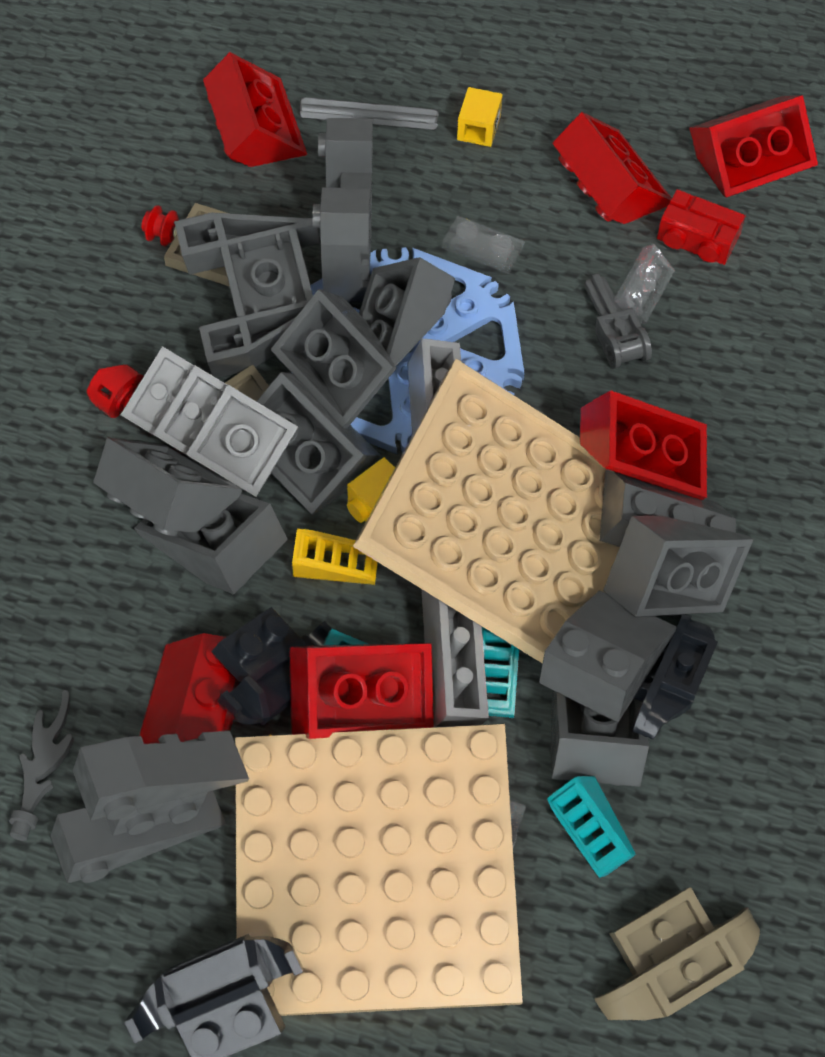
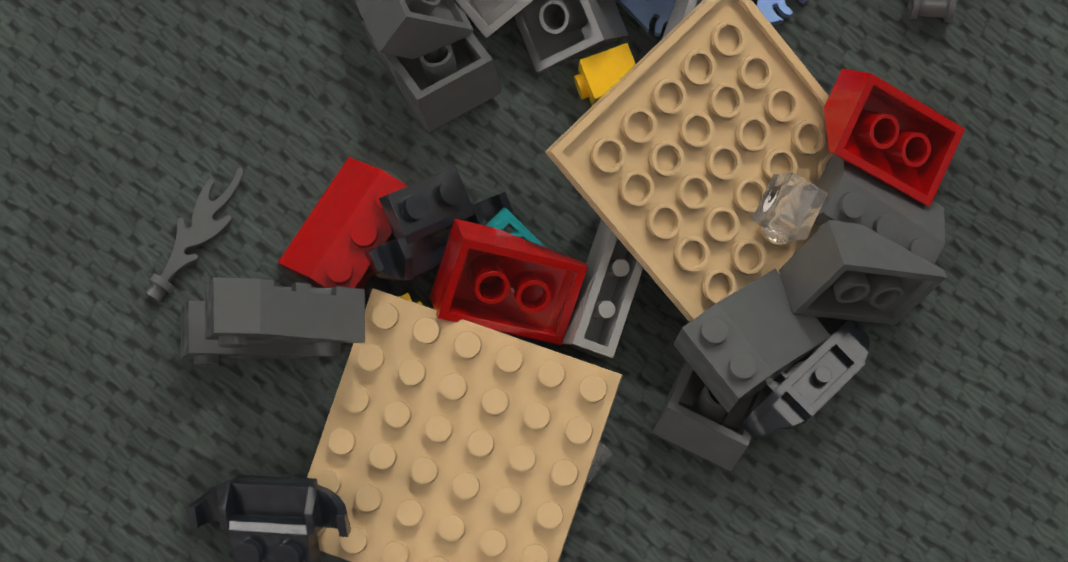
camera: 20 degrees right, 20 degrees up
(333, 571) = (534, 106): yellow slope -> none
(495, 649) = (633, 340): teal slope -> none
(571, 818) = (656, 468): teal slope -> none
(589, 530) = (789, 208): none -> clear brick

